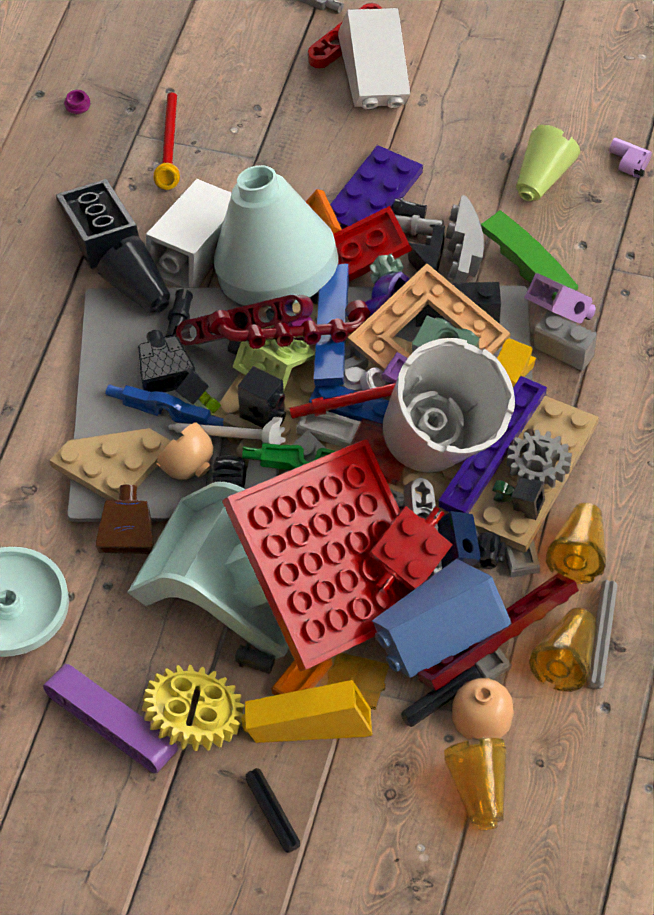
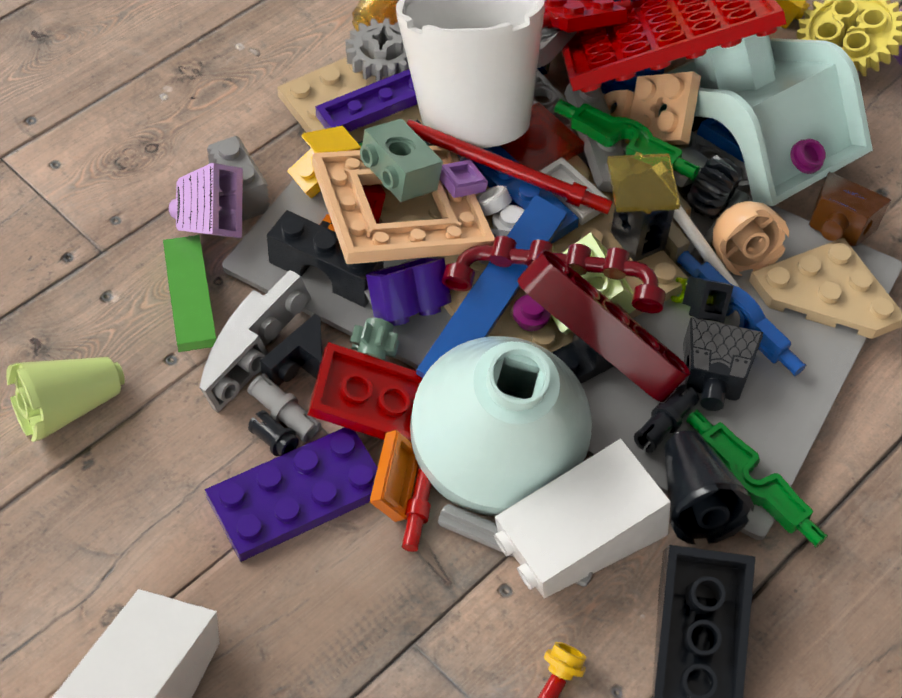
camera: 155 degrees left, 0 degrees up
(94, 308) = (770, 492): none -> green piece
(172, 536) = (808, 155): none -> magenta plate
(266, 384) = (643, 182): none -> clear yellow piece

